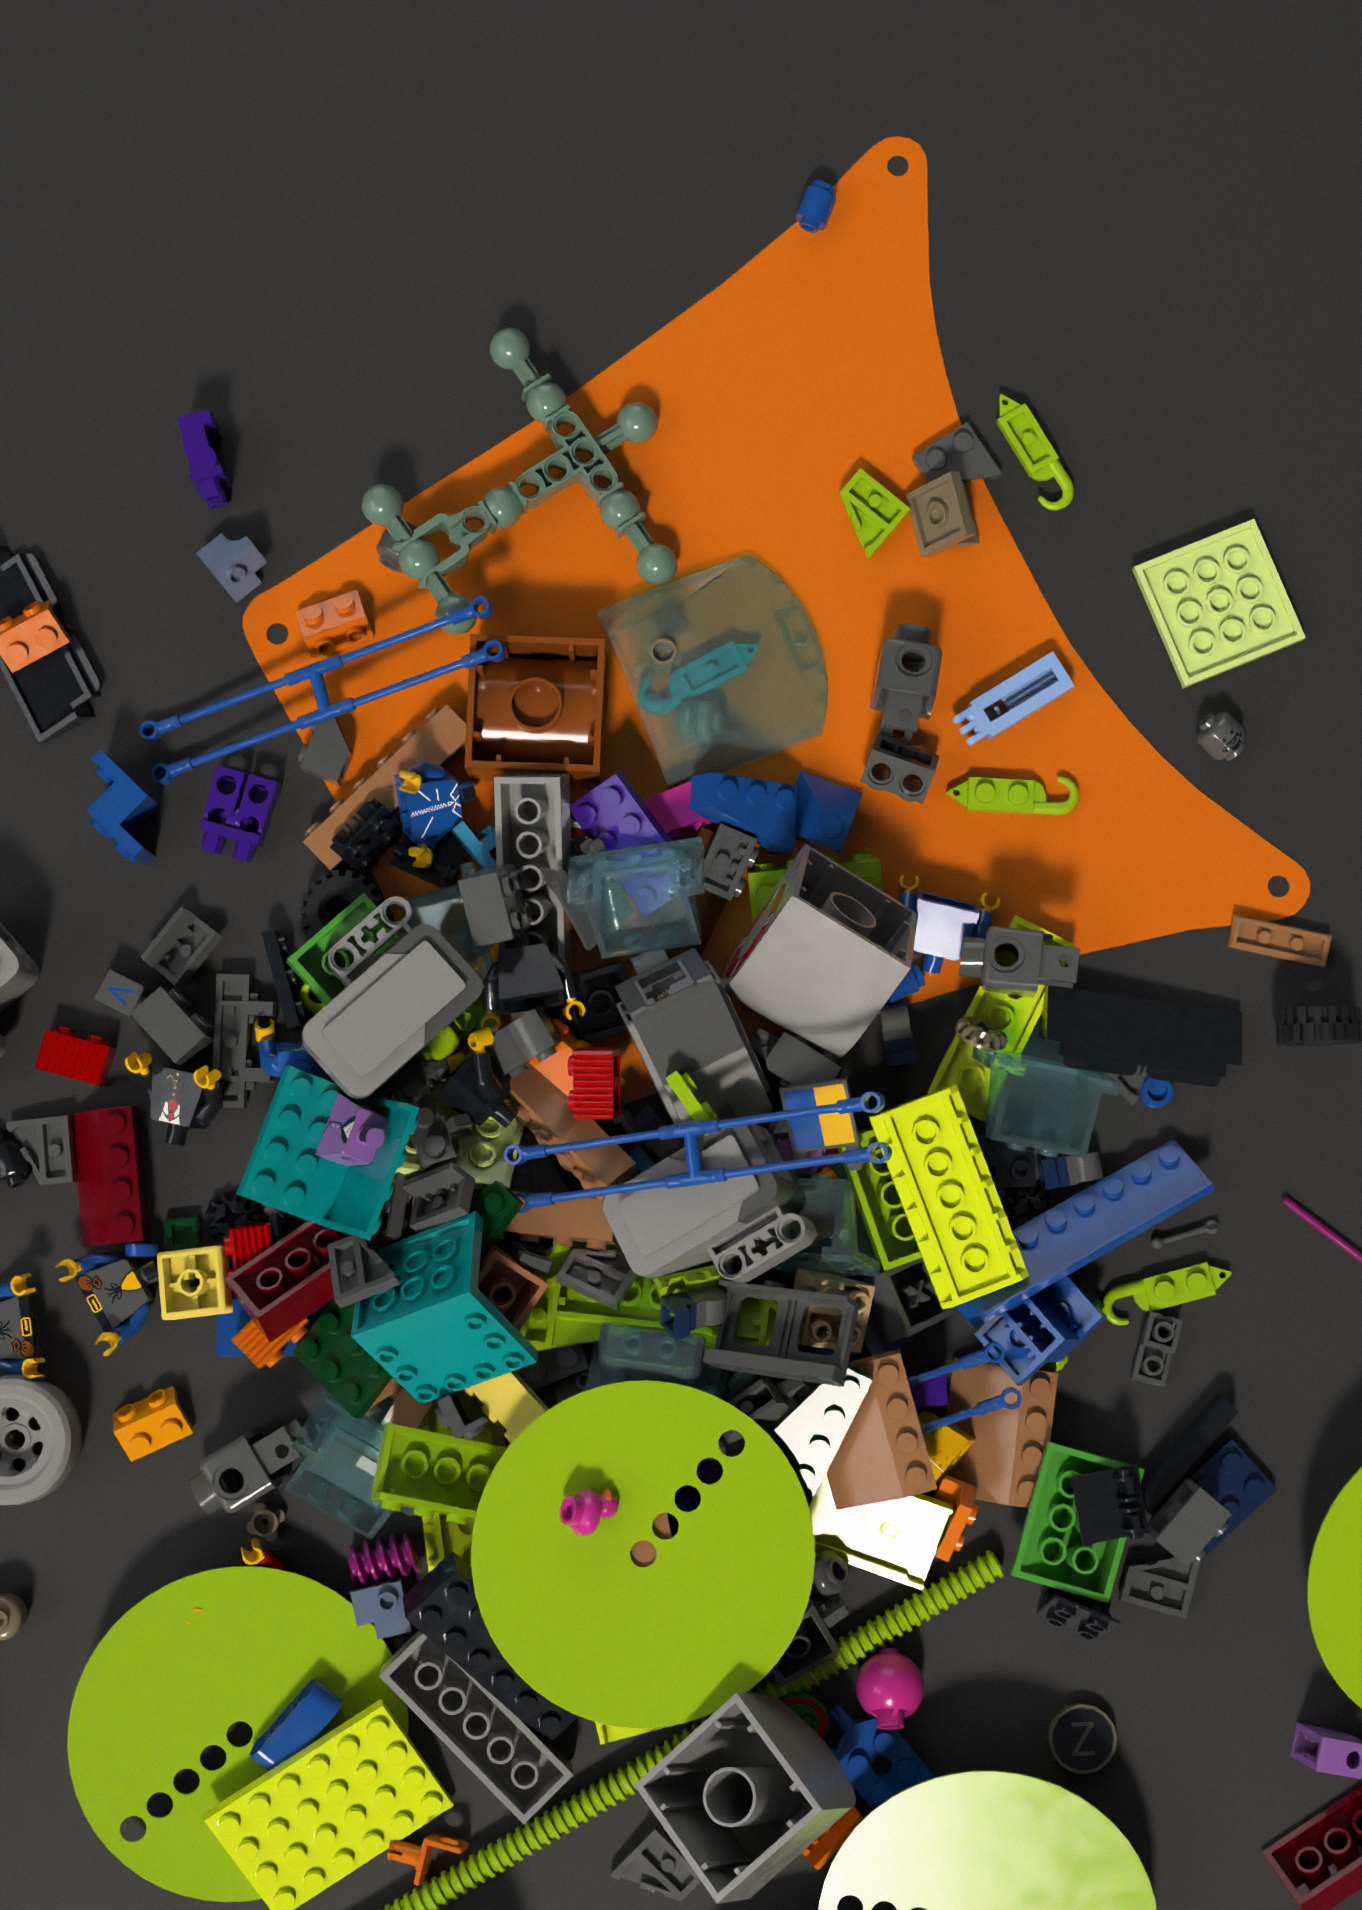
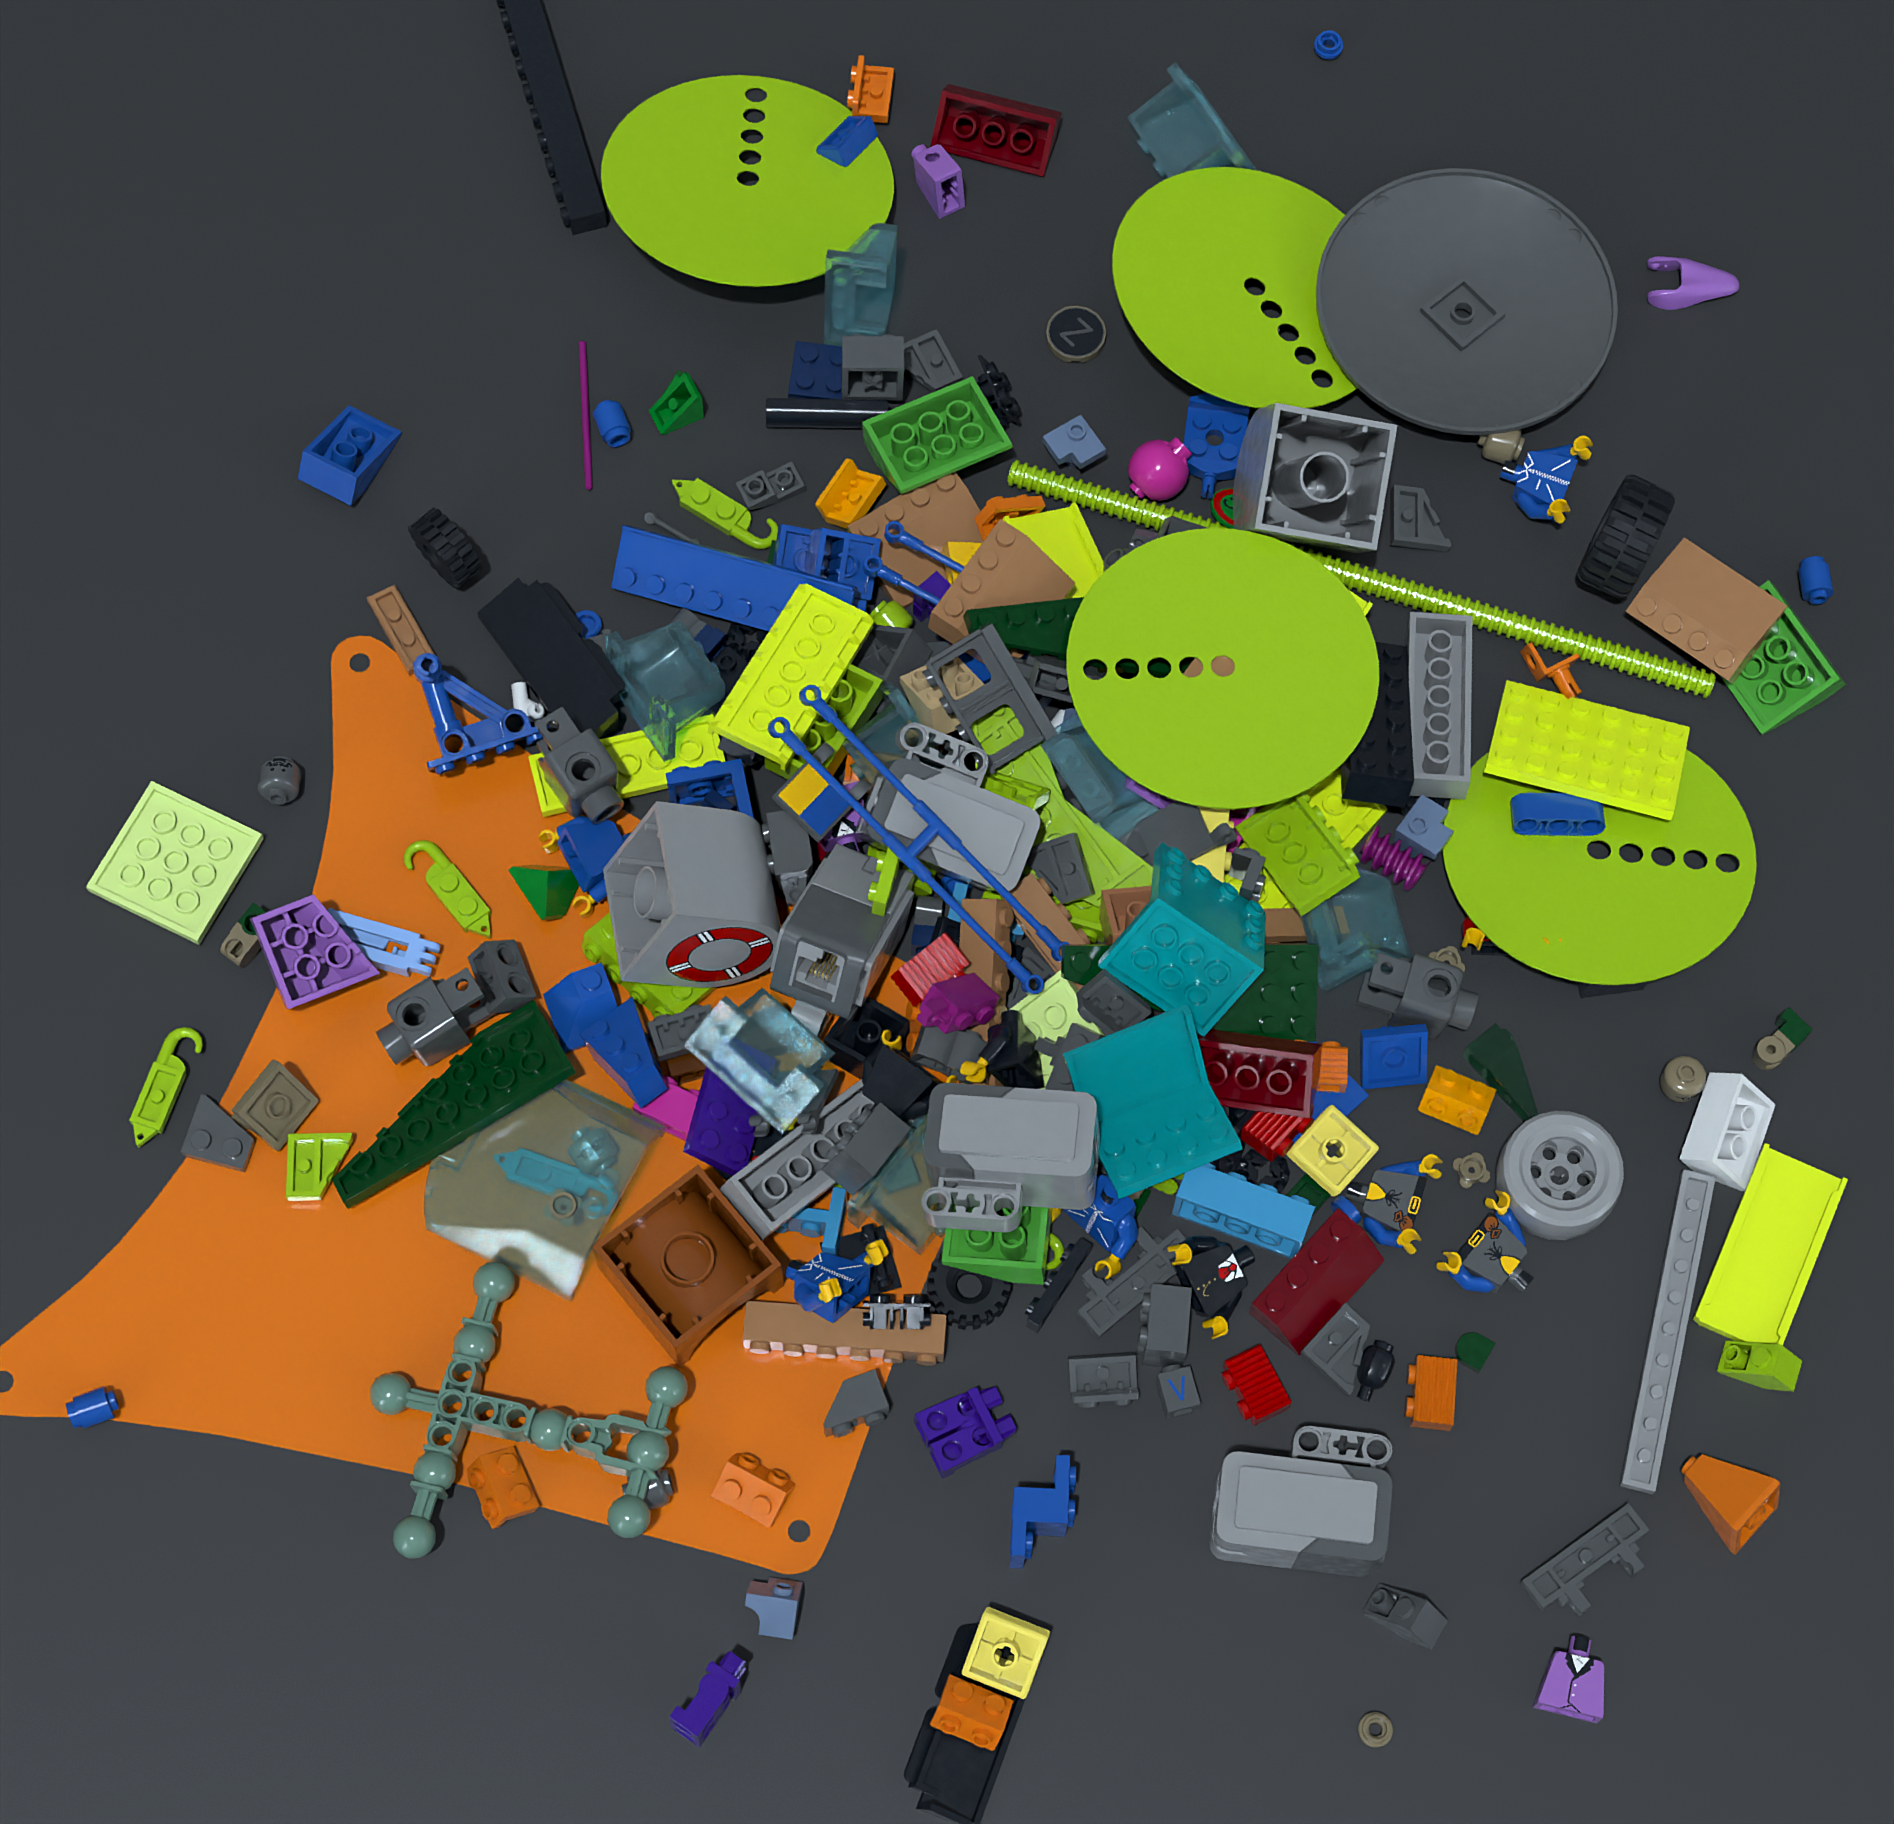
camera: 130 degrees left, 15 degrees down
(44, 692) = (985, 1660): none -> light yellow brick
(79, 1384) = (1473, 1161): none -> dark tan plate
(141, 1482) = (1501, 1067): none -> clear green slope
(199, 1171) = (1243, 1209): none -> dark azure brick
(225, 1402) = (1393, 1056): none -> blue tile
(325, 708) = (806, 1452): blue bar -> none
(352, 1133) = (1122, 1105): medium lavender torso -> none
(358, 1271) = (1215, 1013): dark grey wing -> none
(496, 446) = (501, 1486): none -> orange bracket
(529, 1256) = (1094, 922): dark grey tile -> none
(537, 1389) = (1184, 828): none -> dark grey flag
(547, 1076) = (958, 1004): none -> magenta hinge
(586, 1509) = (1229, 718): dark pink animal -> none
(692, 1310) = (1029, 771): leg -> none
(821, 692) = (489, 1080): none -> dark green wing
(922, 1072) = (692, 784): none -> blue bracket
(945, 1338) = (891, 615): none -> lime head
(949, 866) = (546, 888): none -> green slope
(974, 1636) = (1074, 444): none -> sand blue brick
(981, 1034) = (653, 758): dark tan gear -> none
(1045, 632) = (308, 951): none -> medium lavender wedge
(1090, 1405) = (849, 495): none -> light orange bracket
(1105, 611) = (242, 942): none -> dark tan leg
(1110, 1504) = (906, 420): black hinge -> none
(1120, 909) = (477, 737): none -> blue plate
(1124, 982) = (520, 701): none -> white arm
(1271, 1580) = (860, 285): none -> clear light blue windscreen
(1300, 1335) = (678, 405): none -> green slope
(1327, 1266) = (612, 423): none -> blue brick

